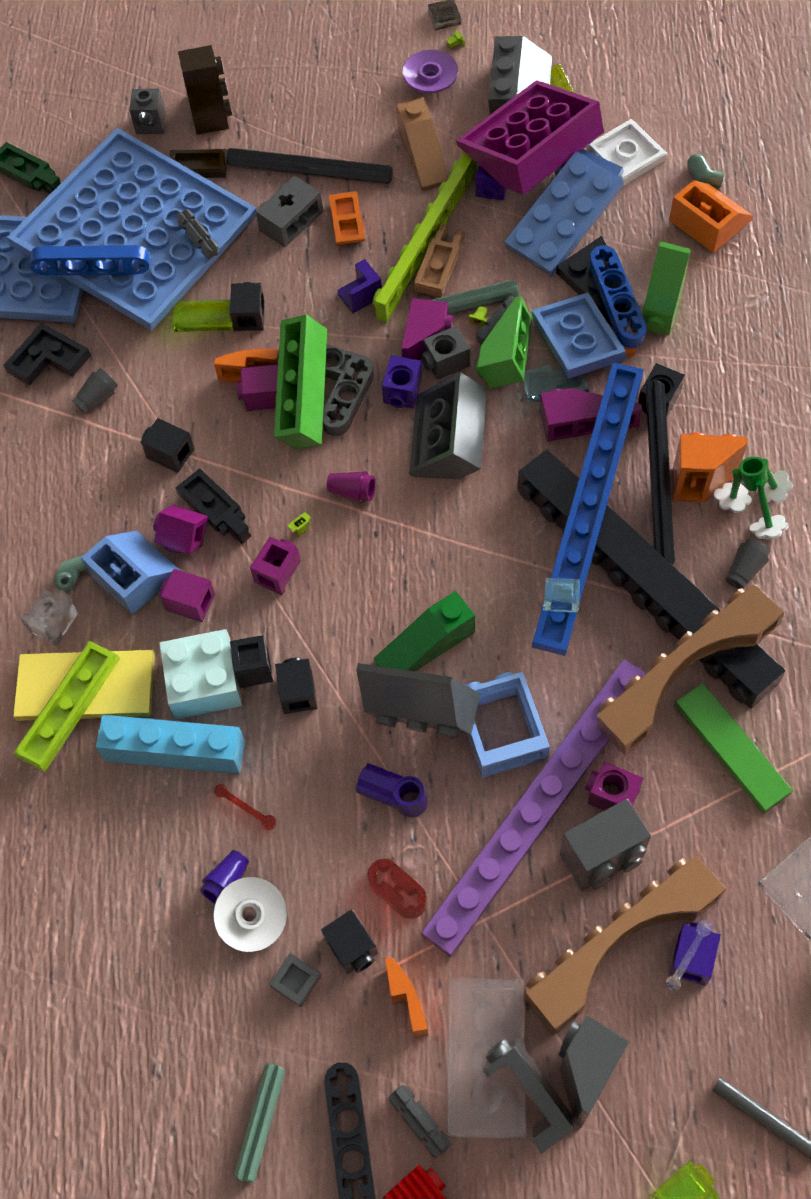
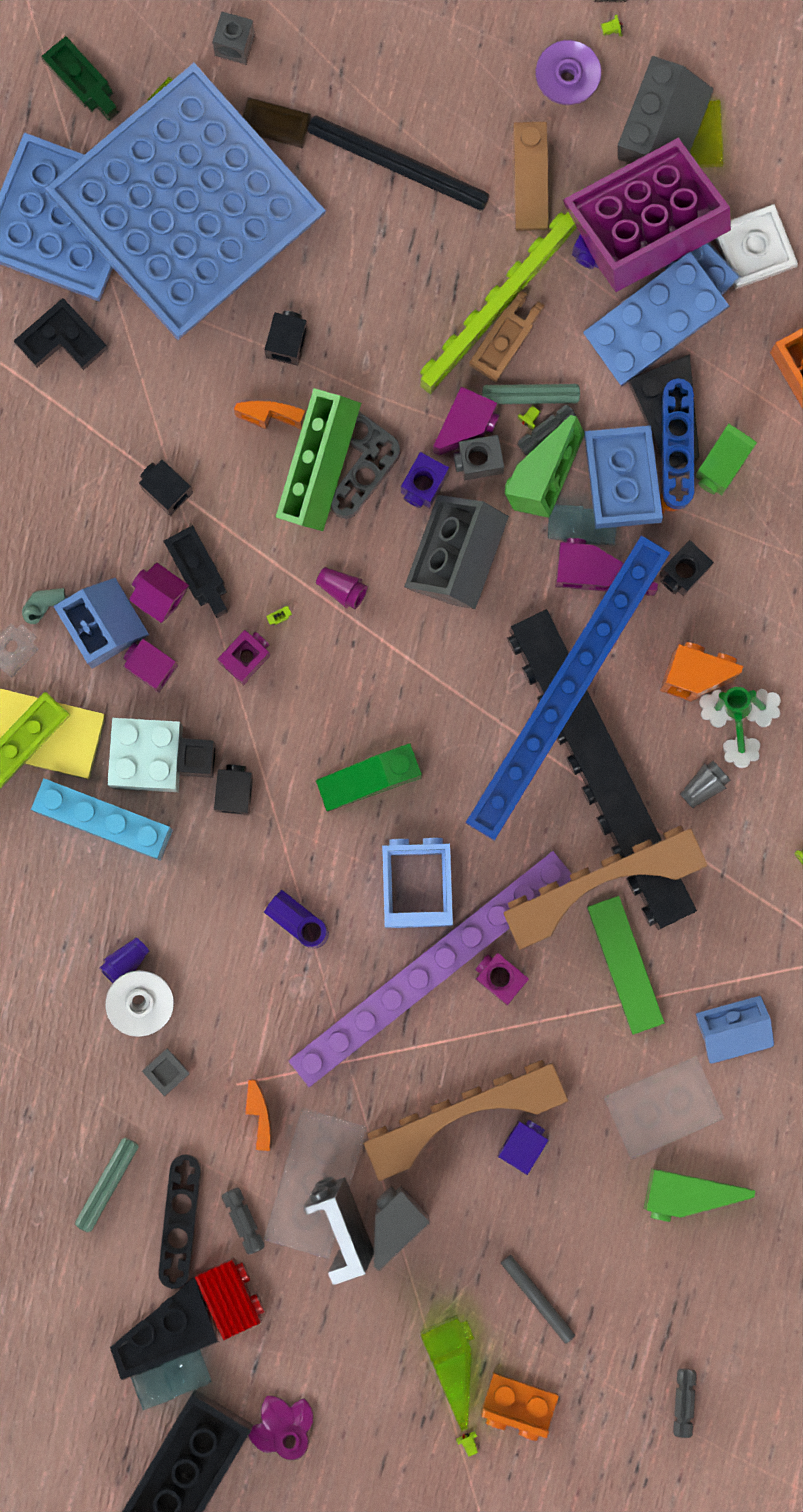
camera: 10 degrees right, 20 degrees up
(55, 260) = (128, 248): blue beam -> none
(95, 390) = (103, 398): dark grey cone -> none
(197, 234) = (252, 236): dark grey axle -> none
(202, 316) = (236, 331): clear neon green tile -> none
(205, 89) = (303, 43): dark brown wedge -> none
(258, 387) = (275, 444): magenta brick -> none
(267, 821) = (175, 916): clear red hinge -> none
(289, 211) = (352, 239): dark grey brick -> none
(346, 218) = (421, 249): orange slope -> none
(350, 942) = (222, 1053): black brick -> none
(362, 290) = (412, 348): dark purple panel -> none
(391, 894) = (271, 1018): clear red beam -> none
(417, 700) = (342, 848): dark grey slope -> none
(562, 595) = (507, 783): clear light blue slope -> none
(605, 845) = (474, 1032): dark grey brick -> none
(659, 470) = (652, 664): black axle -> none
(703, 929) = (534, 1132): clear hinge -> none

